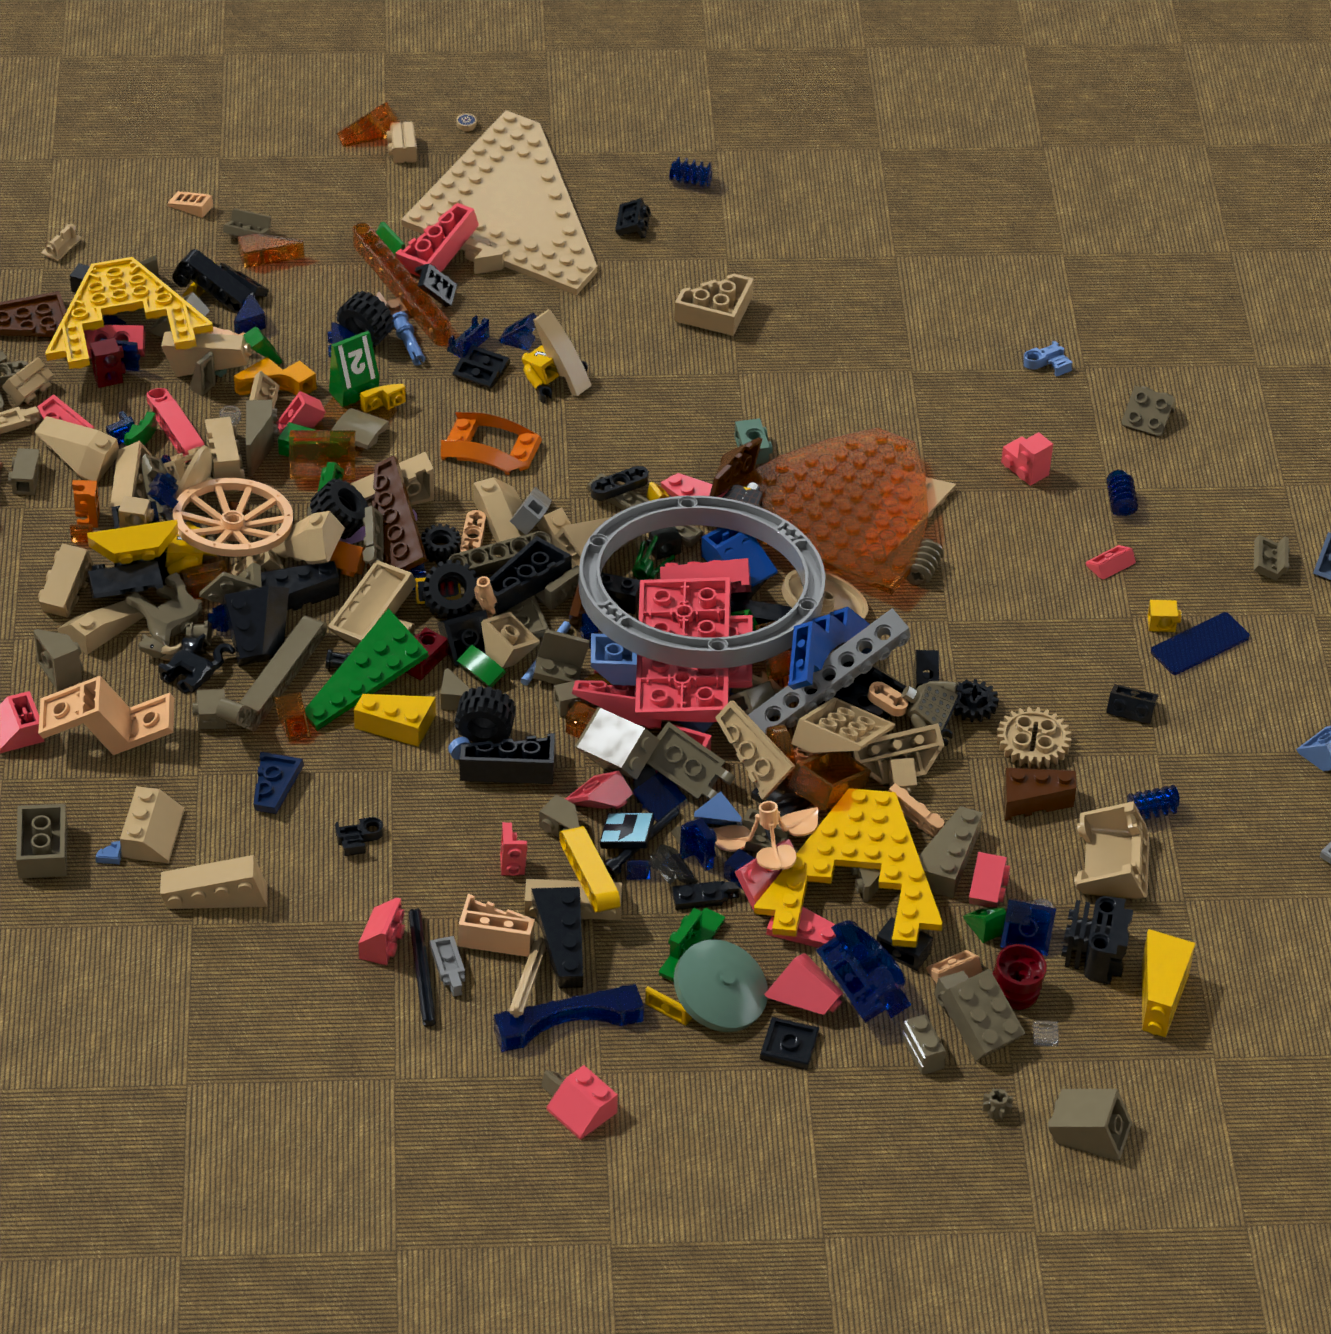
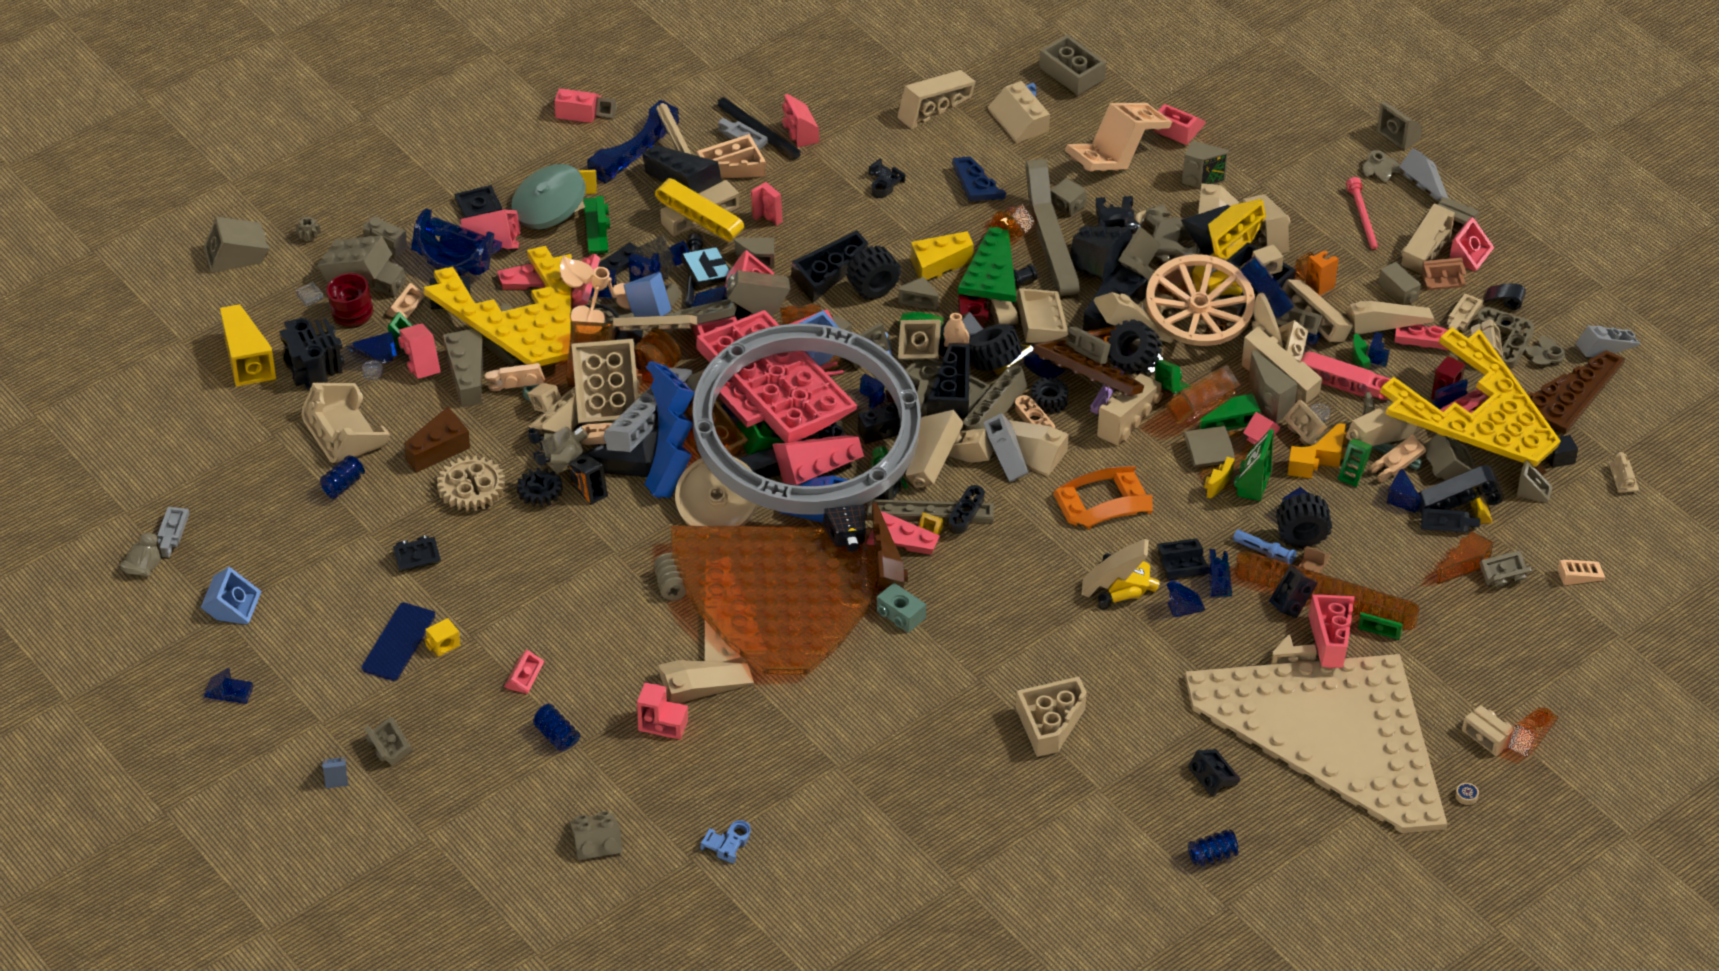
camera: 145 degrees right, 0 degrees up
(981, 472) = (698, 679): none -> tan wedge

